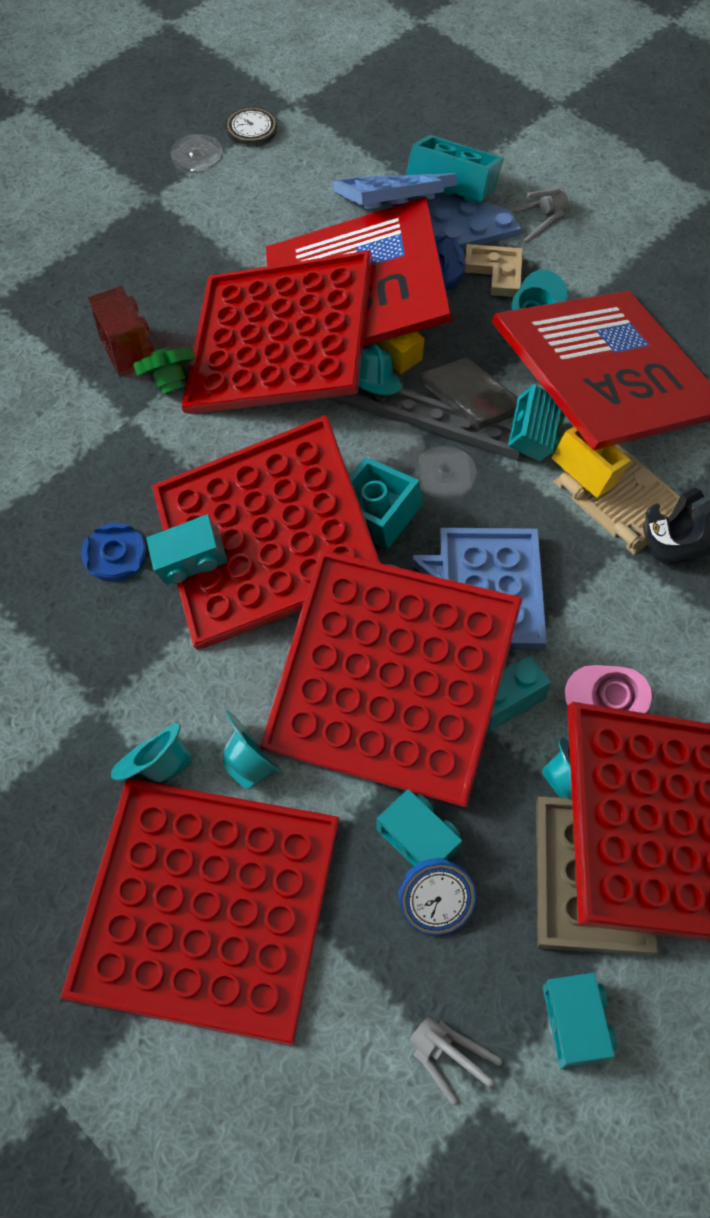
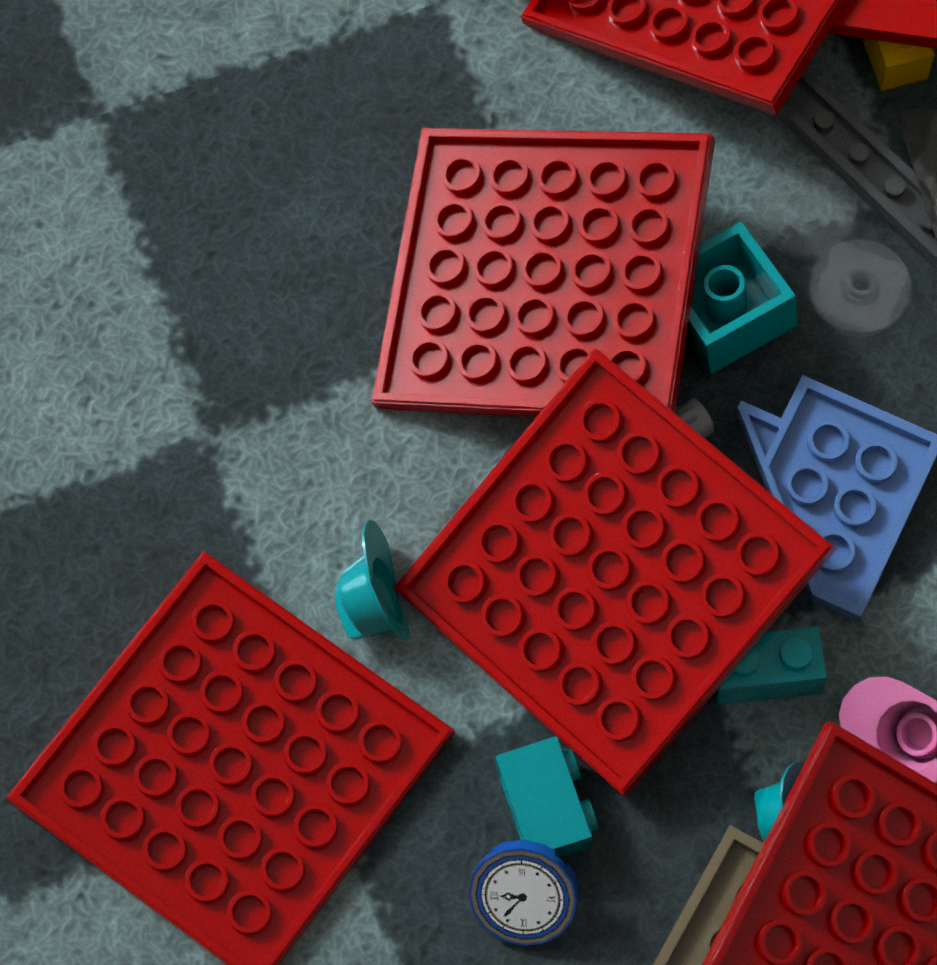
camera: 30 degrees right, 10 degrees up
(116, 561) = (330, 227): blue tile -> none
(156, 758) = (249, 540): teal piece -> none
(186, 550) = (421, 259): teal brick -> none
(377, 372) = (835, 83): teal piece -> none

